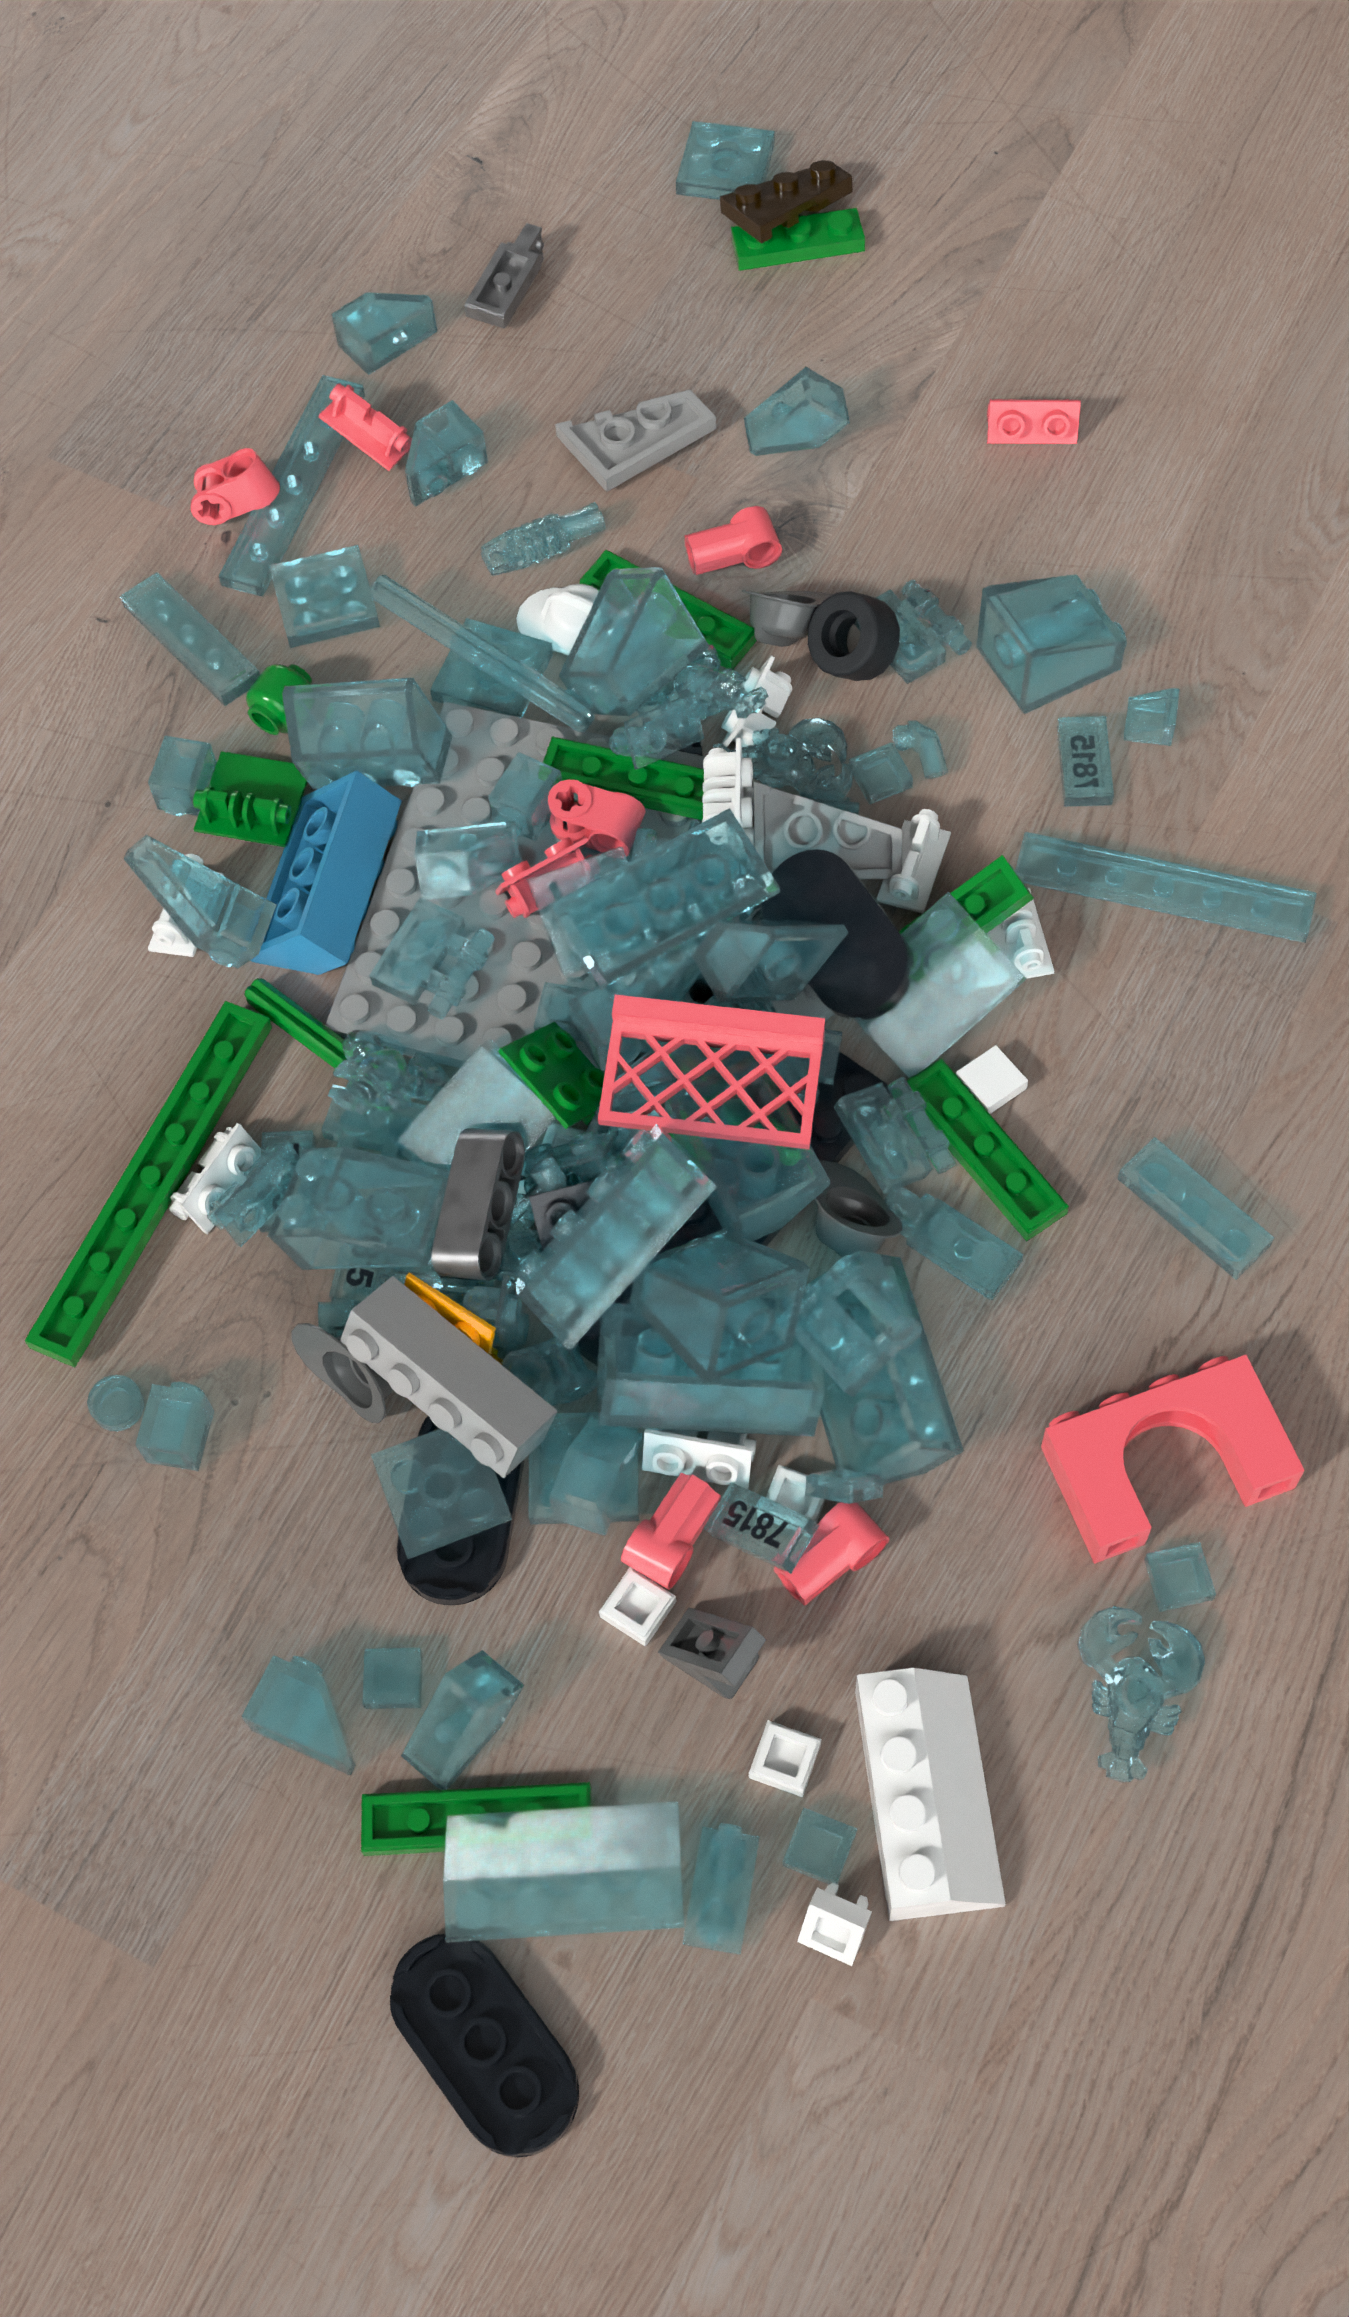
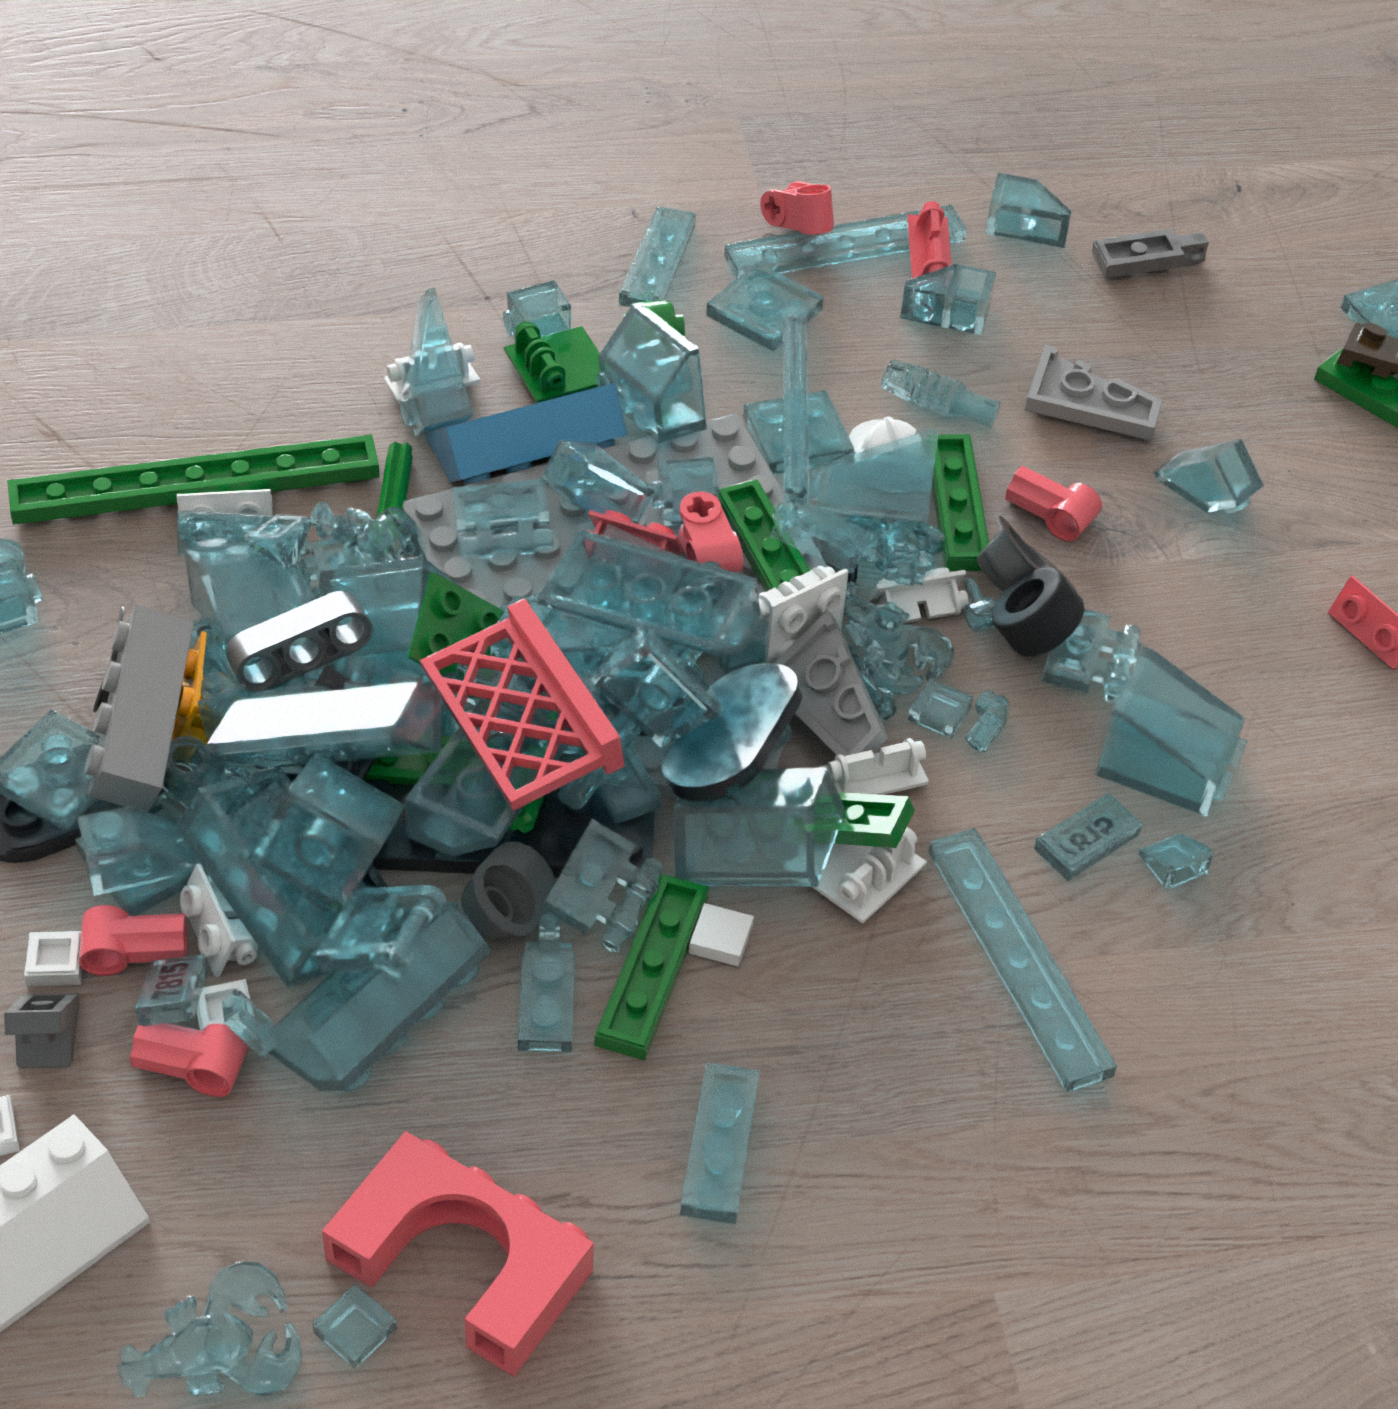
camera: 45 degrees right, 15 degrees down
(339, 1146) = (281, 538): none -> clear light blue slope
(804, 674) = (979, 611): none -> clear light blue hand

